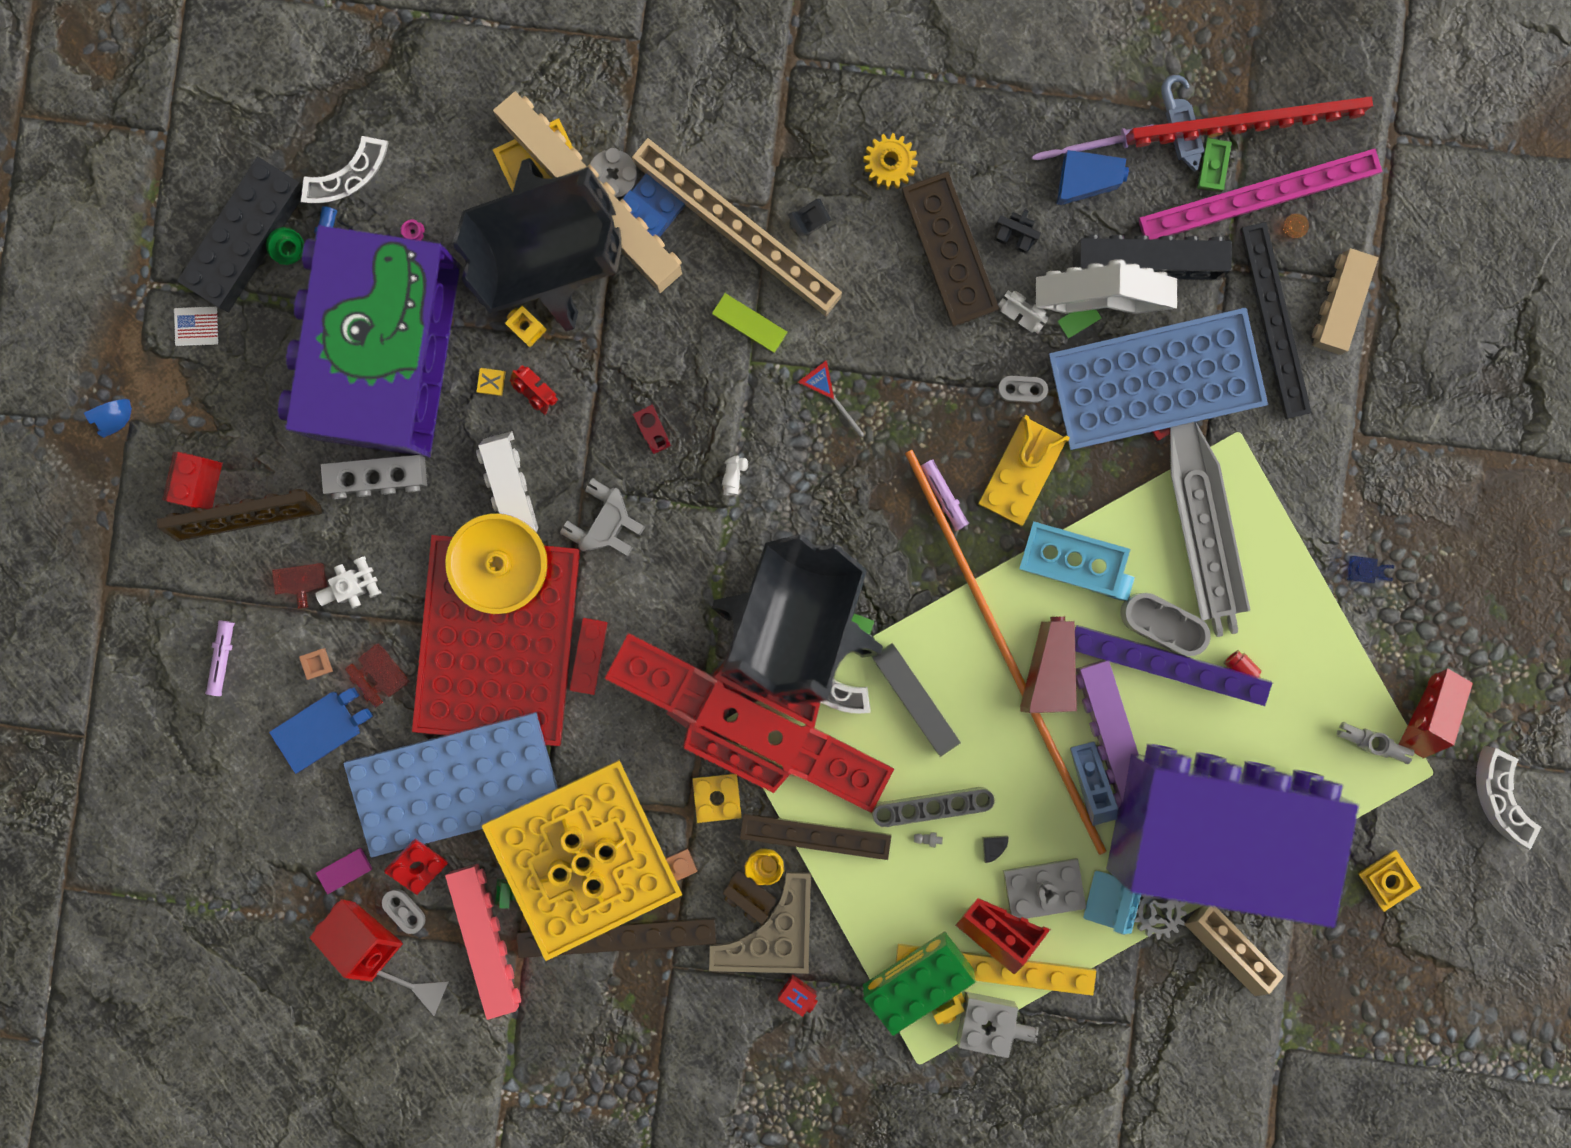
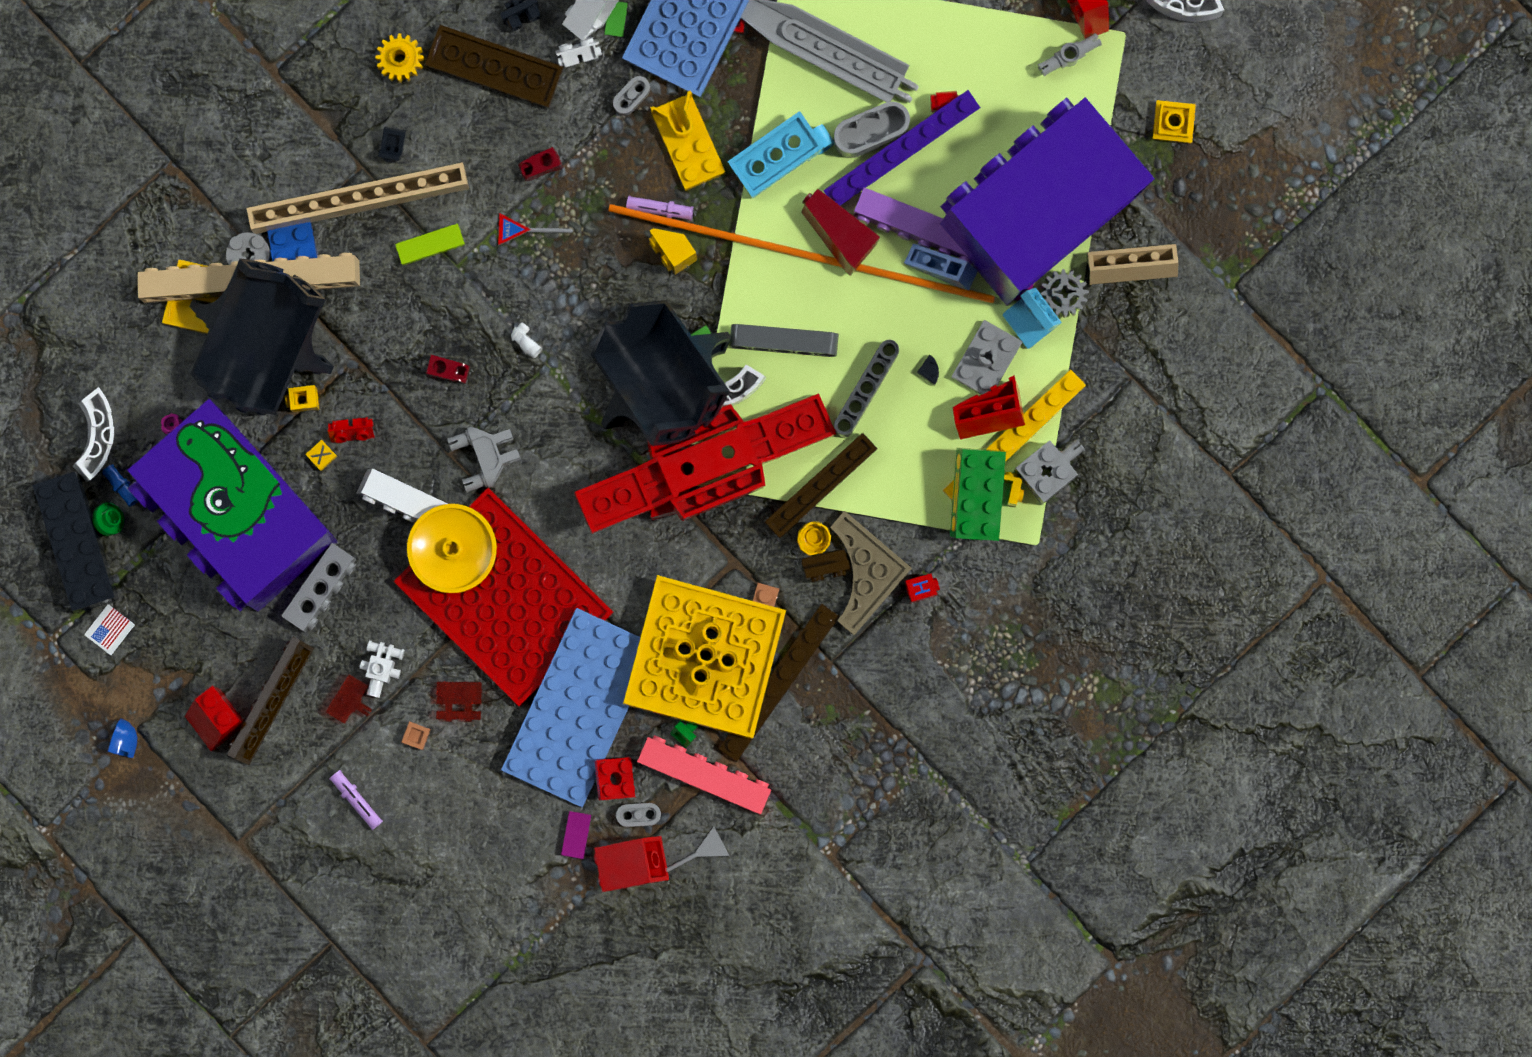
camera: 50 degrees left, 5 degrees down
(319, 729) = (463, 771): blue tile -> none
(588, 656) = (567, 542): red plate -> none
(708, 811) = (734, 520): yellow piece -> none
(897, 360) = (540, 164): none -> dark red leg
(918, 538) = (675, 249): none -> yellow slope
(931, 839) = (887, 410): light grey piece -> none

